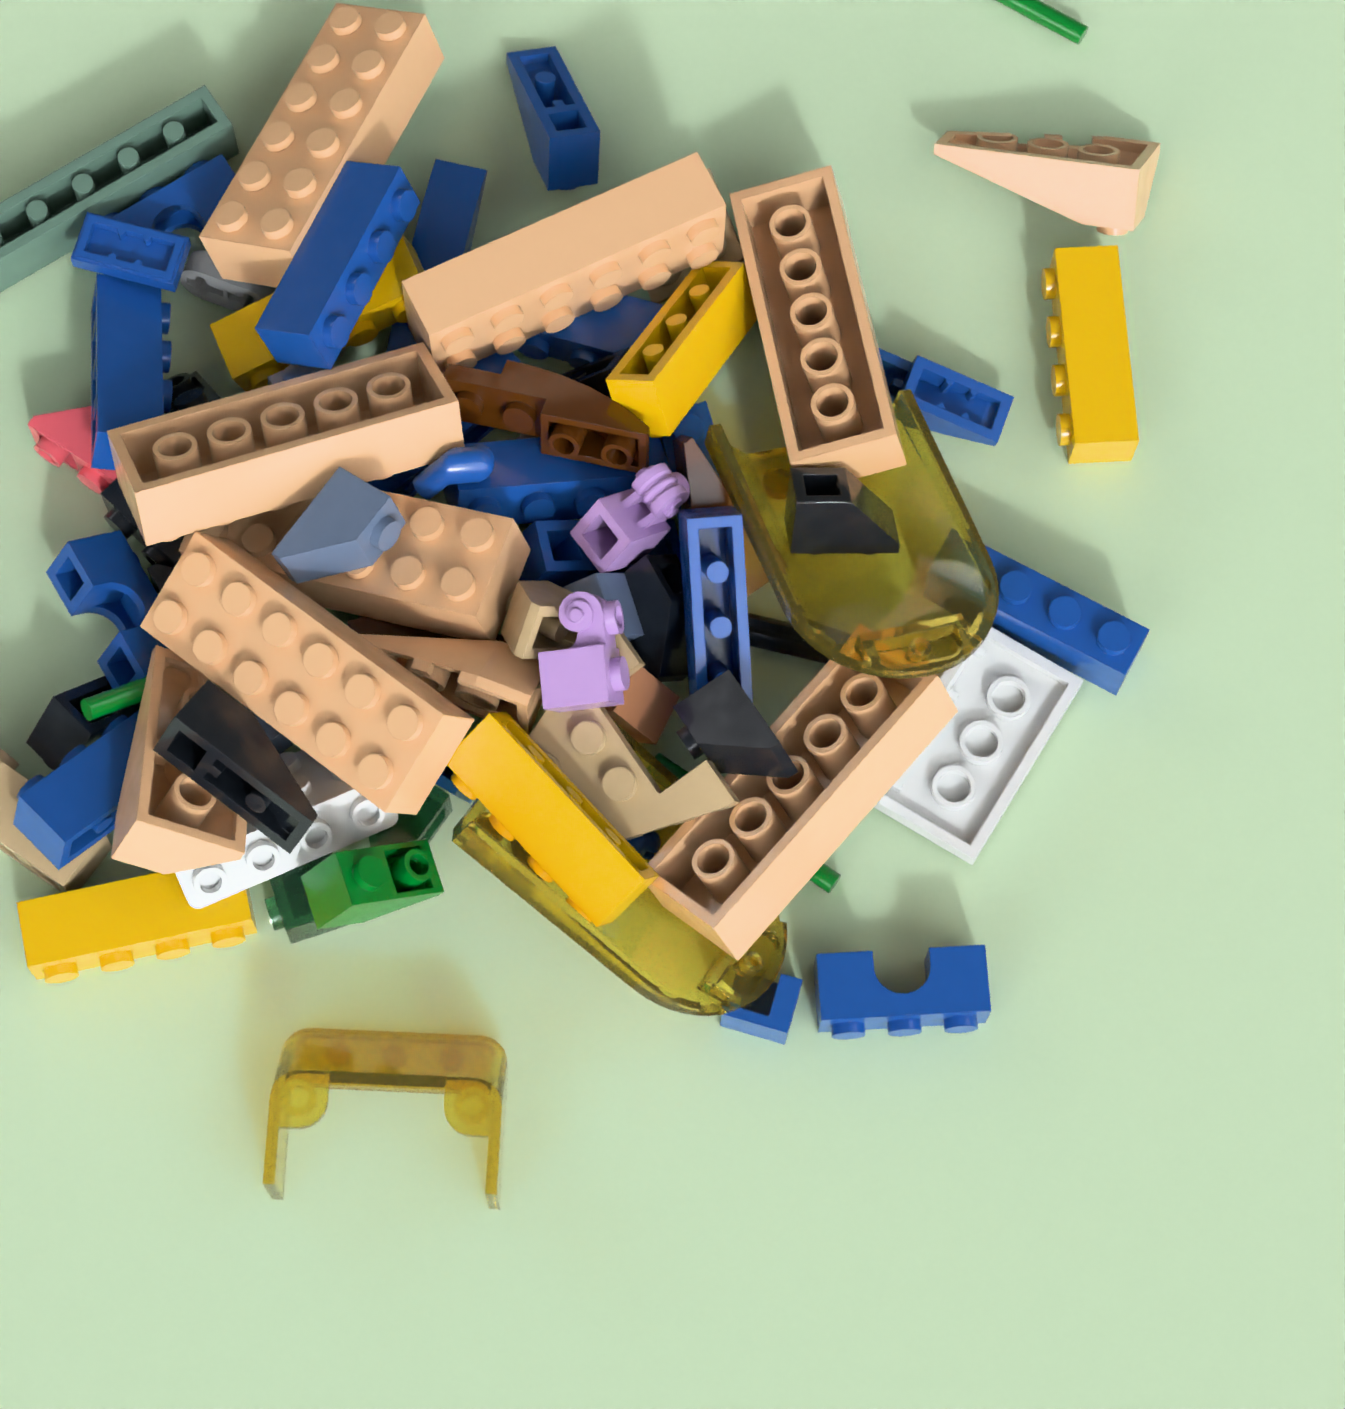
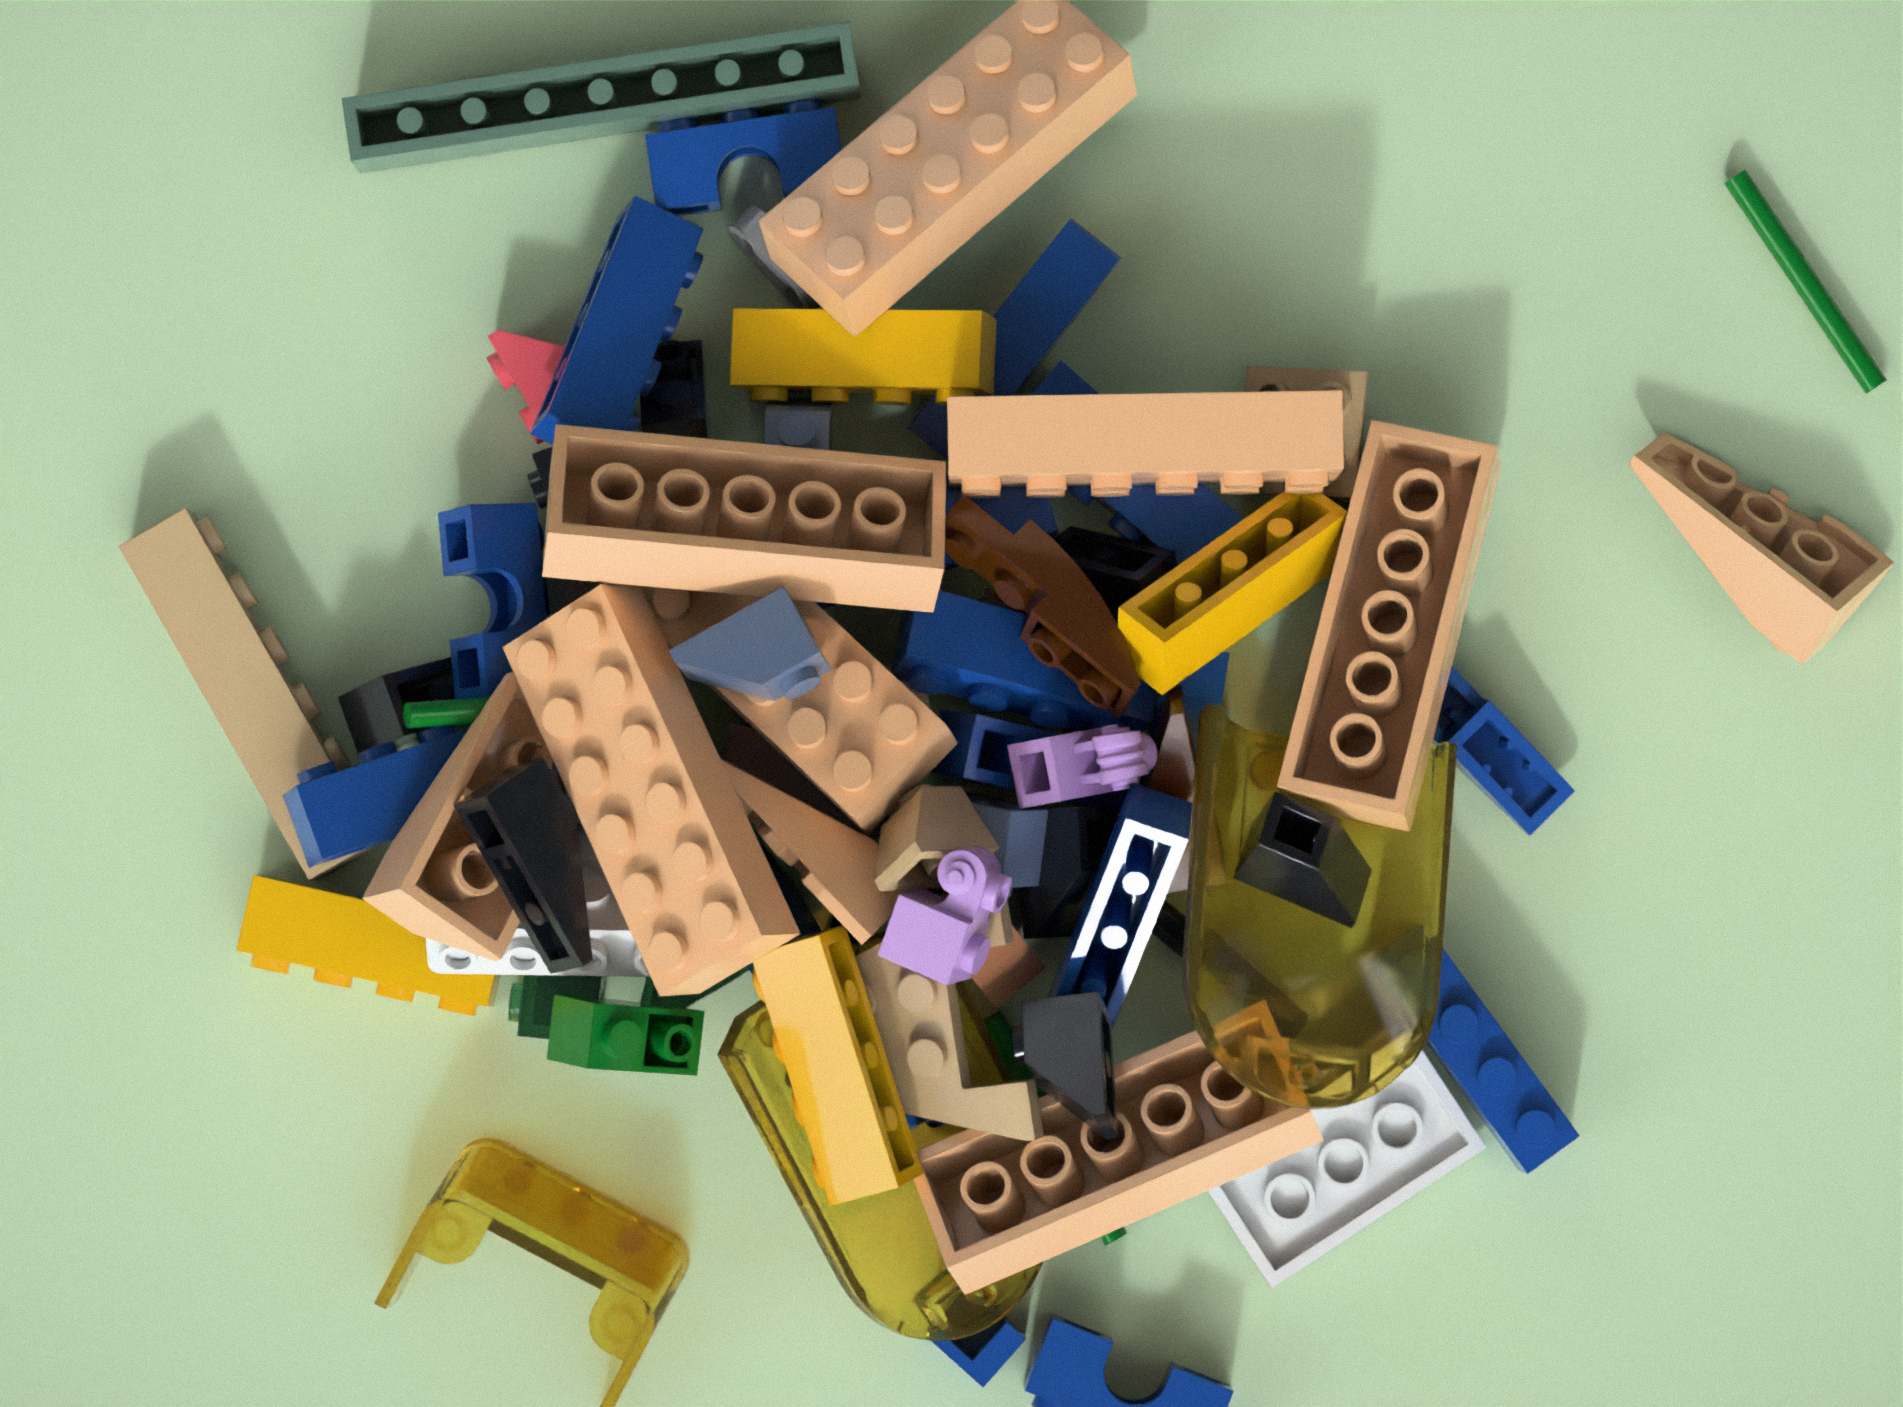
camera: 30 degrees right, 15 degrees up
(131, 252) = (682, 189): blue plate -> none
(338, 265) = (894, 331): blue brick -> none
(455, 466) = (913, 627): blue arm -> none
(555, 119) = (1227, 220): blue slope -> none
(1091, 354) = (1686, 779): yellow brick -> none

